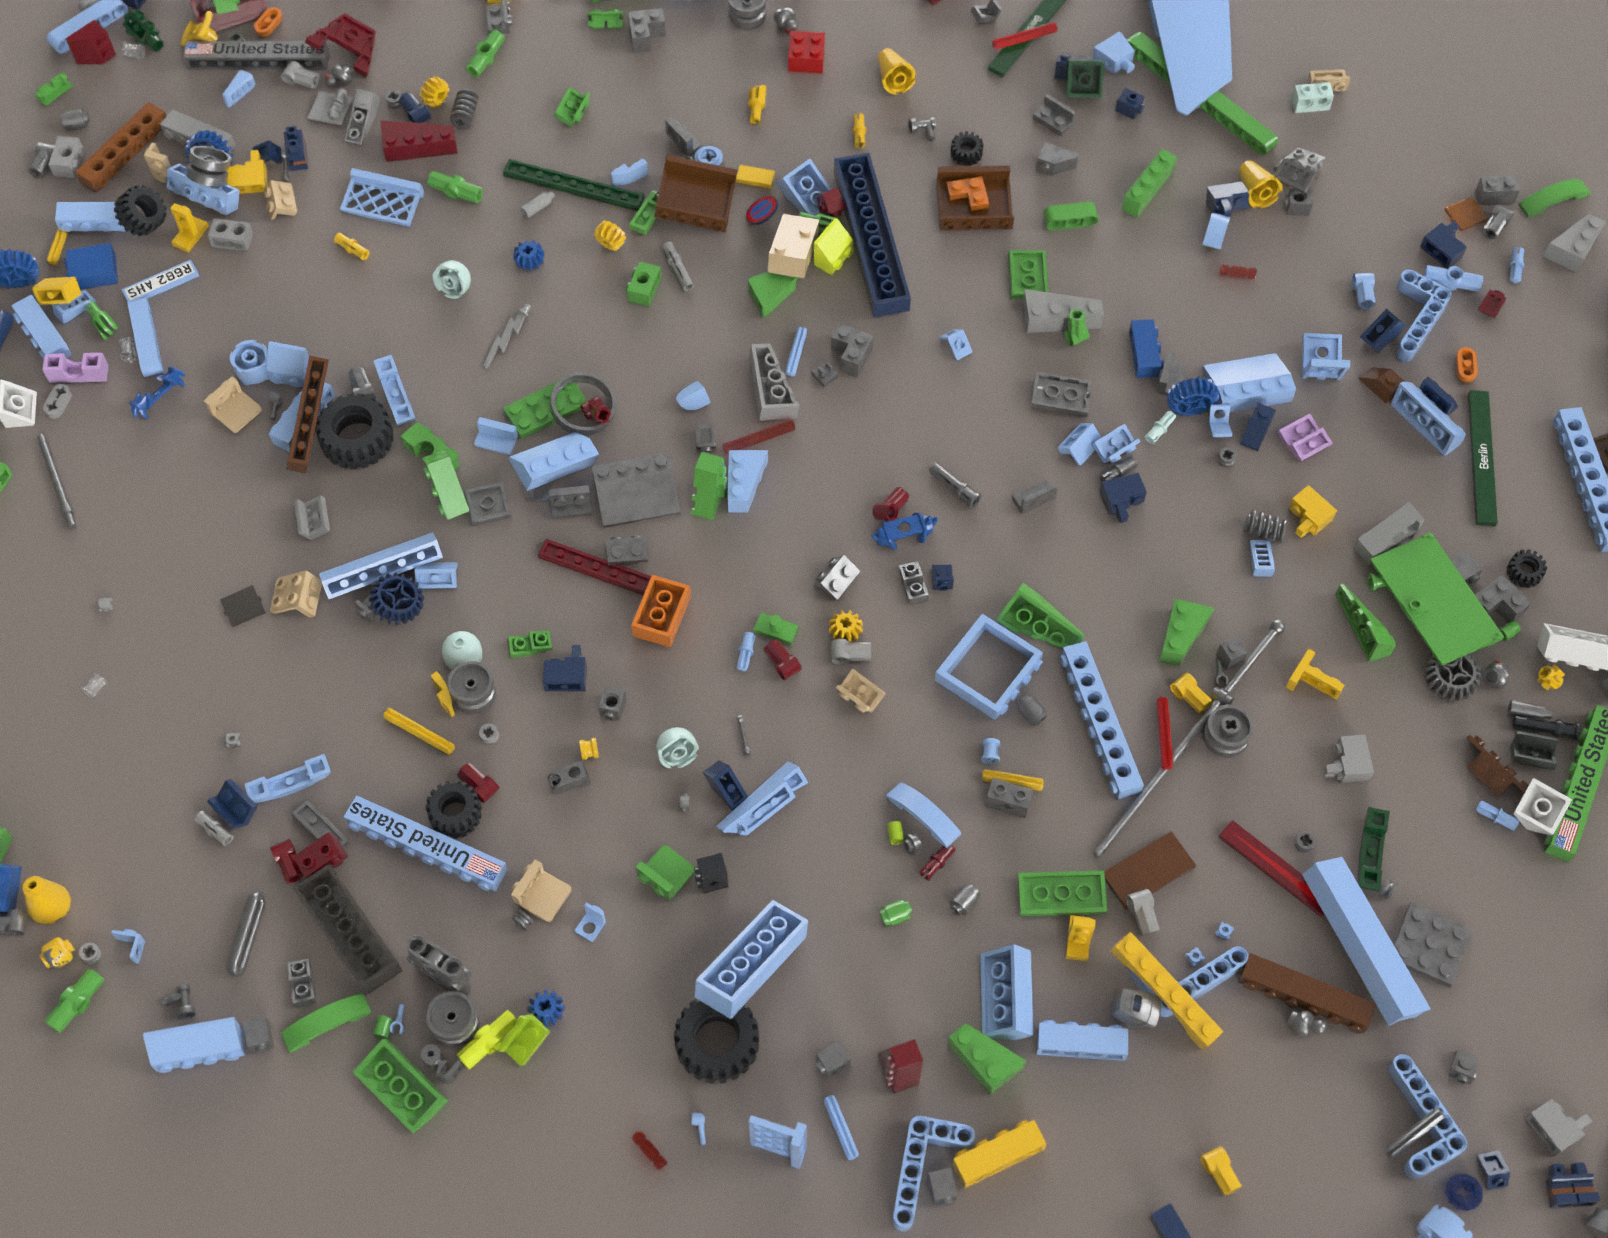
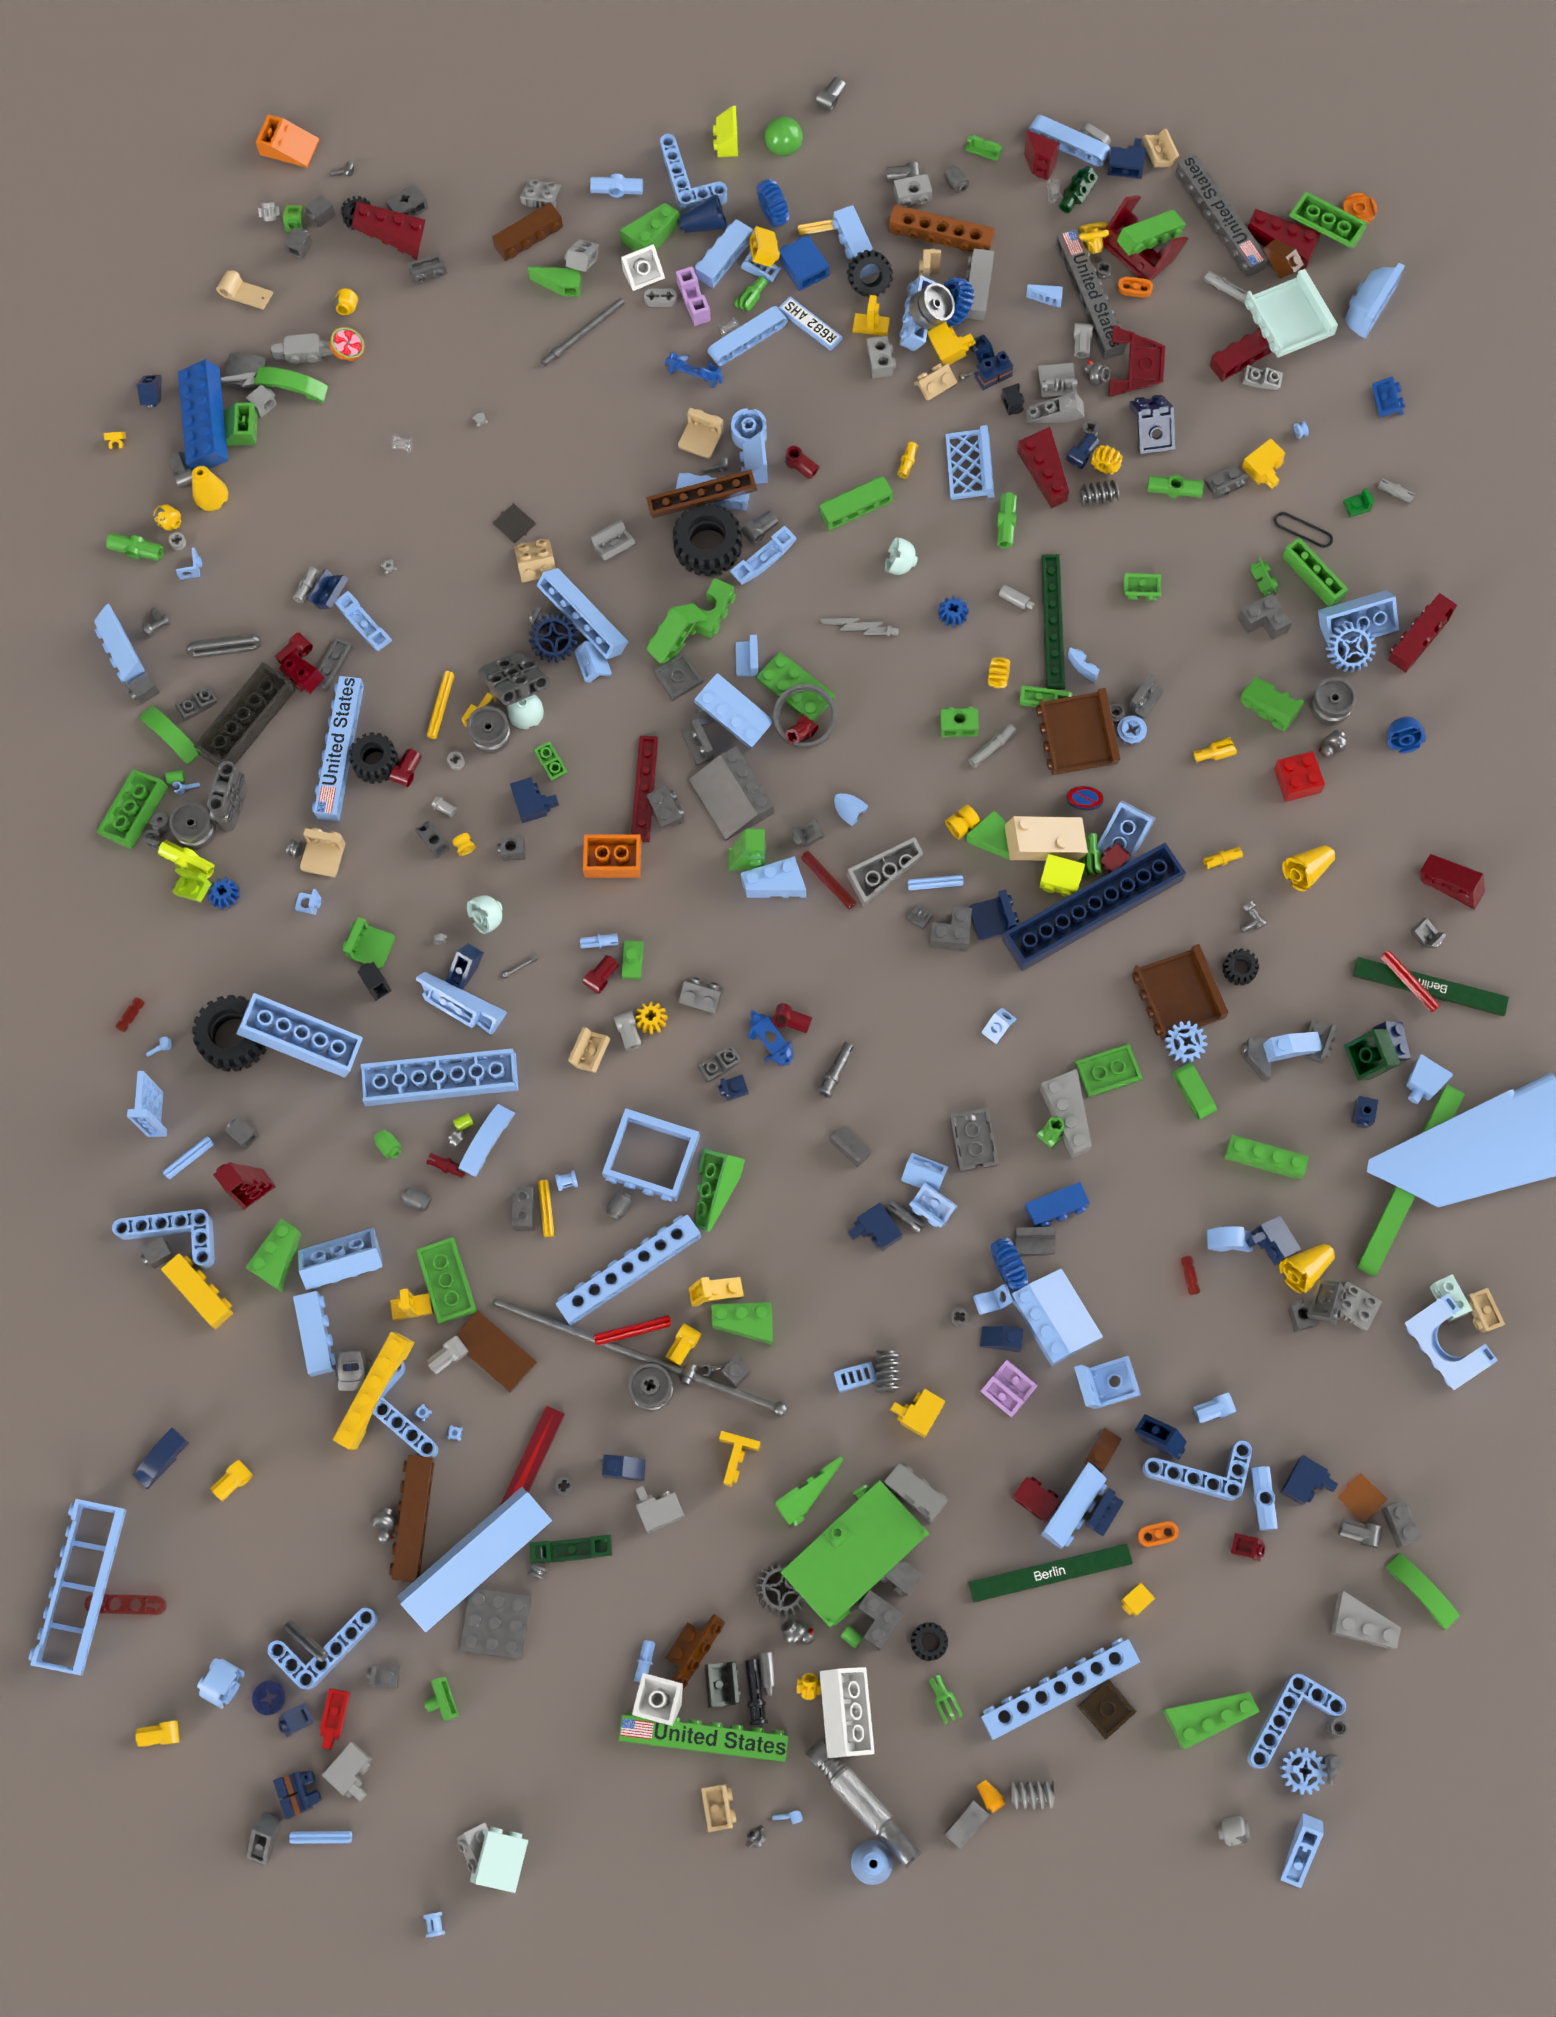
camera: 75 degrees right, 10 degrees up
(303, 334) = (801, 463): none -> dark red piece
(333, 145) = (1012, 399): none -> black brick
(376, 298) = (856, 503): none -> bright green brick
(412, 40) = (1152, 415): none -> bracket
(427, 644) = (513, 678): none -> flat silver connector
(537, 758) = (443, 806): none -> light grey pin
(731, 49) = (1271, 704): none -> bright green wedge
(746, 309) = (964, 820): none -> yellow wheel
(755, 176) = (1127, 780): yellow tile -> none
(838, 844) = (439, 1077): none -> light blue tile
(849, 309) = (994, 916): none -> dark blue bracket
(969, 188) = (1189, 985): orange plate -> none
(1022, 207) = (1192, 1045): none -> light blue gear
(1058, 130) = (1292, 1045): none -> light blue slope
(1145, 650) = (715, 1290): none -> yellow bracket
(1160, 427) = (969, 1244): light aqua axle -> none
(1300, 783) = (623, 1467): none -> dark blue slope
(1376, 109) = (1454, 1369): none -> light blue arch
(1414, 445) = (1036, 1499): none -> dark red brick
(1497, 1128) = (333, 1716): none -> red hinge
(1500, 1015) = (442, 1700): none -> bright green tile
(1516, 265) = (1309, 1564): light blue axle -> none
(1522, 396) = (1137, 1600): none -> yellow brick
(1584, 571) = (943, 1697): none -> bright green arm

